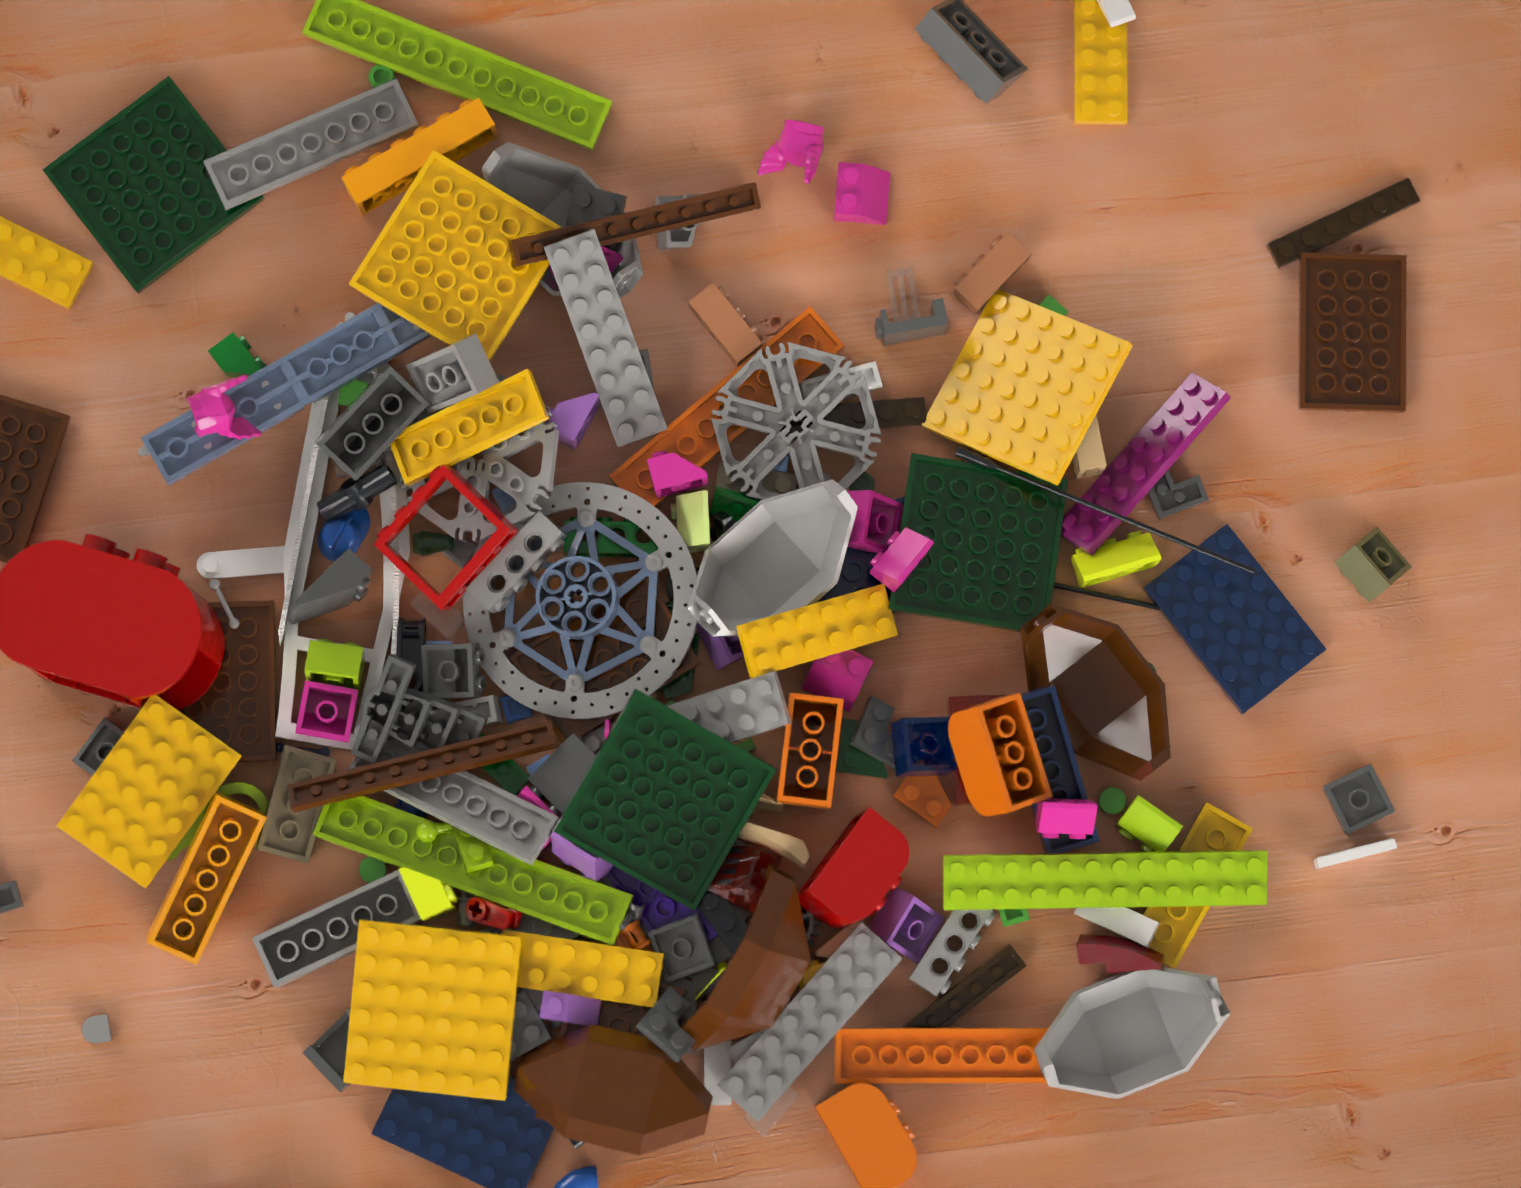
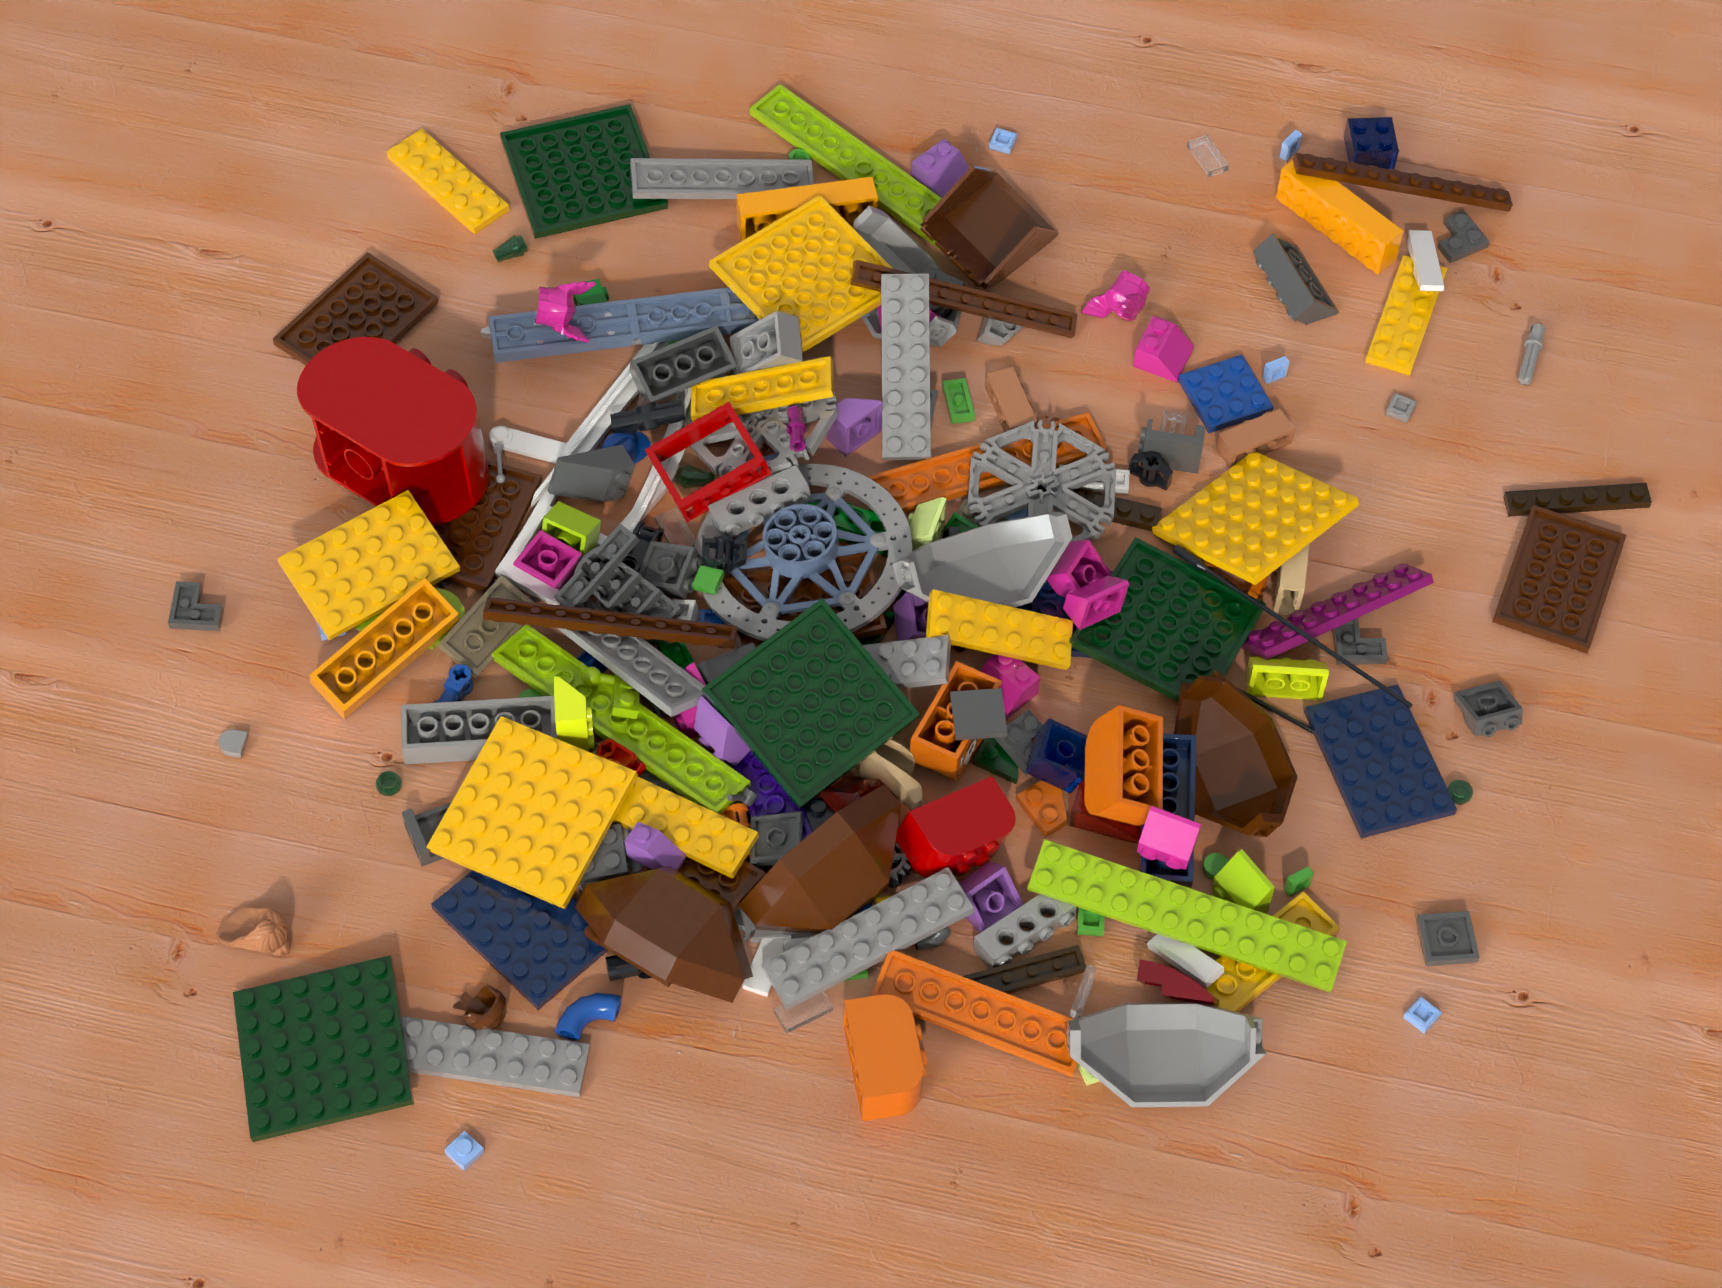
camera: 20 degrees right, 25 degrees down
(120, 318) = (511, 248): none -> clear green cone
(272, 1017) = (388, 783): none -> clear green plate
(292, 891) = (457, 685): none -> blue connector
(498, 670) = (708, 580): none -> bright green tile
(503, 624) = (727, 545): none -> black piece
(524, 470) = (796, 428): none -> magenta pin
(545, 42) = (939, 167): none -> medium lavender slope
(626, 111) = (986, 227): none -> reddish brown windscreen
(661, 1027) = (733, 885): dark grey plate -> none
(668, 340) = (958, 401): none -> bright green plate
(674, 474) = (923, 481): dark pink slope -> none
(834, 749) = (978, 714): none -> dark grey tile
(898, 357) = (1150, 473): none -> black piece
(942, 223) = (1225, 393): none -> blue plate
(986, 176) = (1275, 370): none -> light blue tile
(1031, 994) = (1083, 992): none -> clear tile
(1130, 172) = (1401, 408): none -> light grey tile
(1198, 791) = (1298, 881): none -> bright green tile
(1246, 52) = (1533, 346): none -> light grey axle
(1323, 626) = (1460, 791): none -> clear green plate
(1325, 520) = (1489, 709): none -> dark grey plate
(1354, 853) = (1429, 980): white tile -> none
(1357, 889) = (1422, 1014): none -> light blue tile
(1372, 564) = (1520, 756): olive slope -> none

